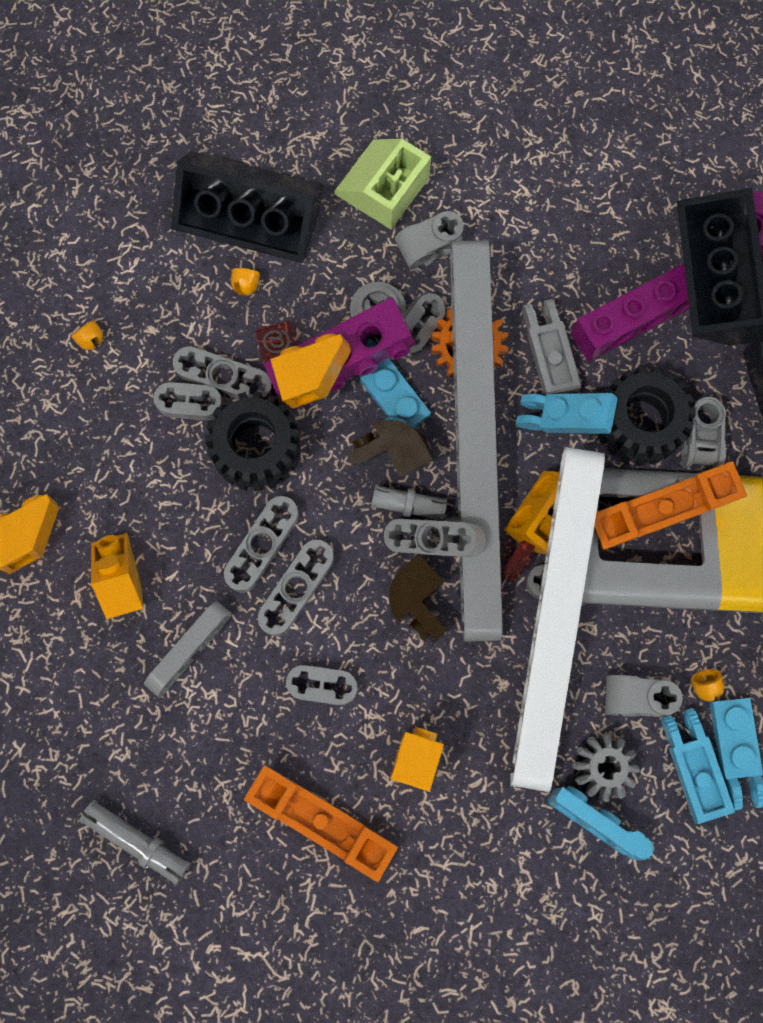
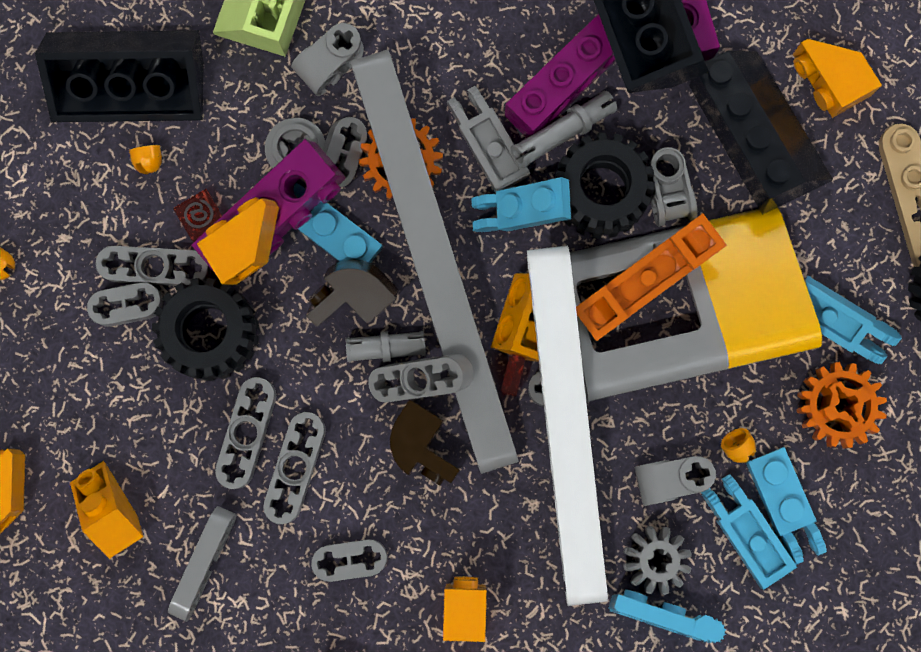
camera: 10 degrees left, 5 degrees up
(634, 354) = (576, 121): none -> light grey pin

